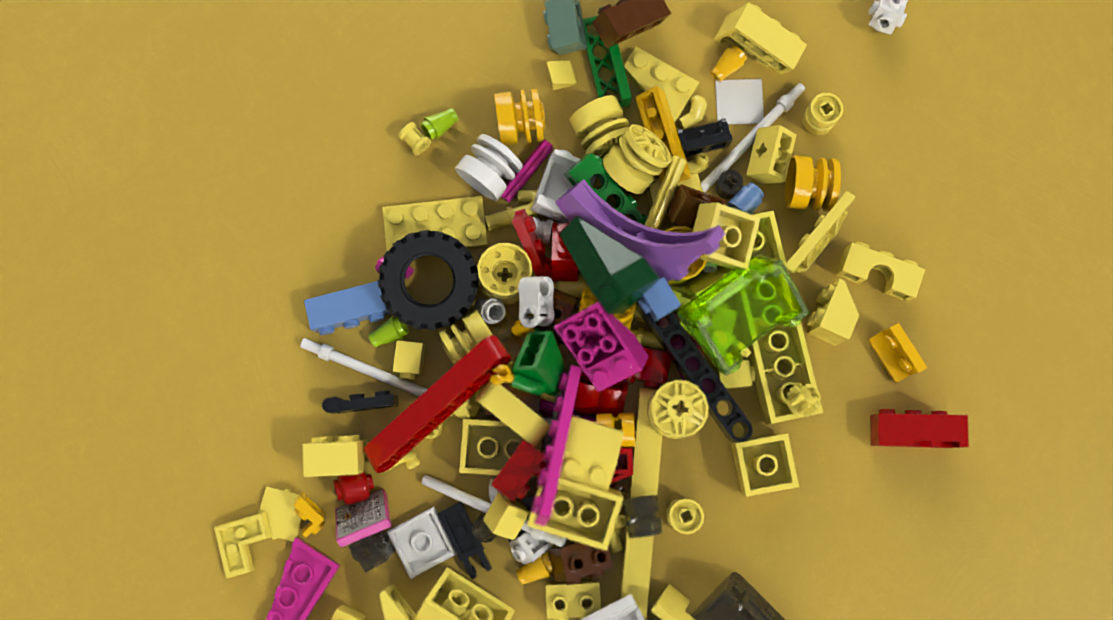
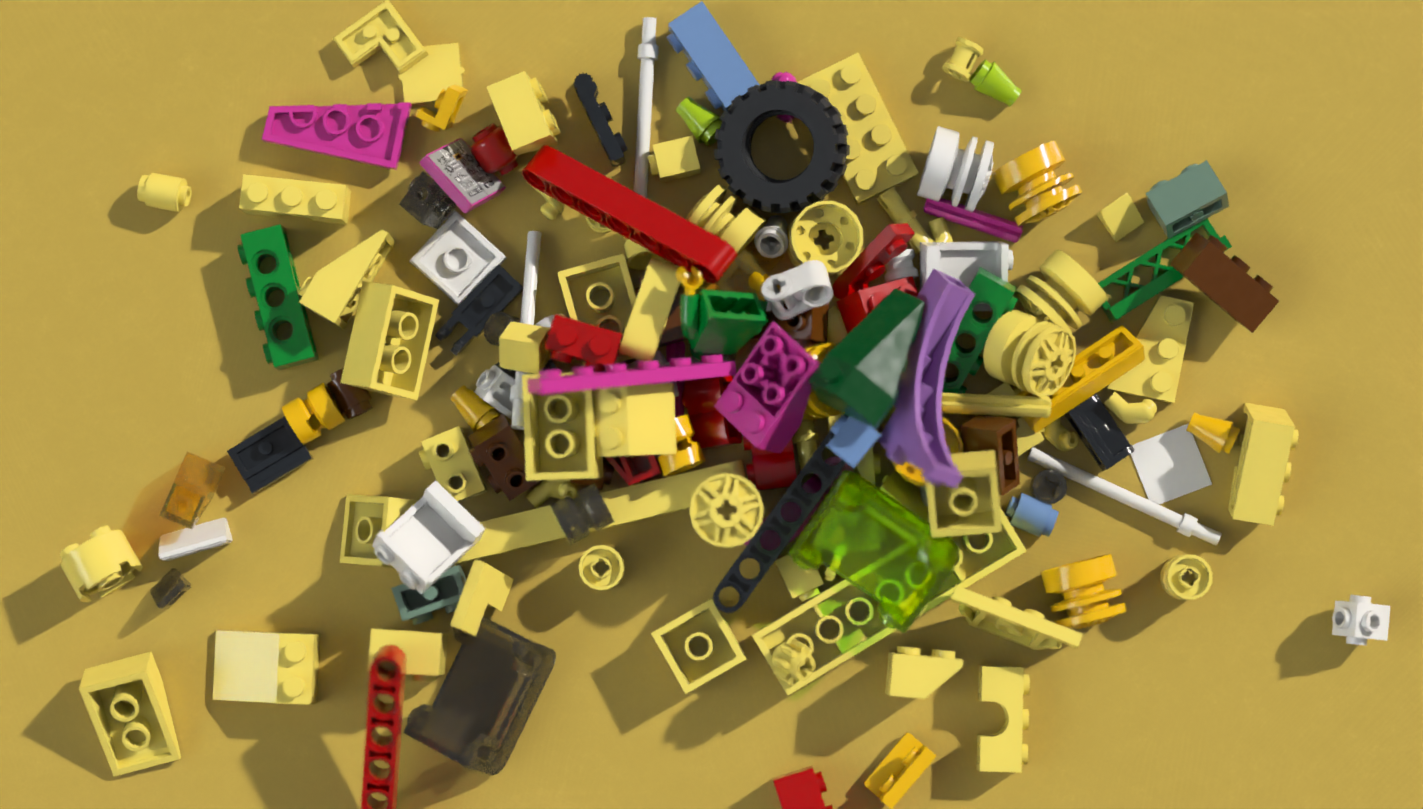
camera: 70 degrees right, 5 degrees up
(771, 154) = (1105, 527): light yellow brick -> none

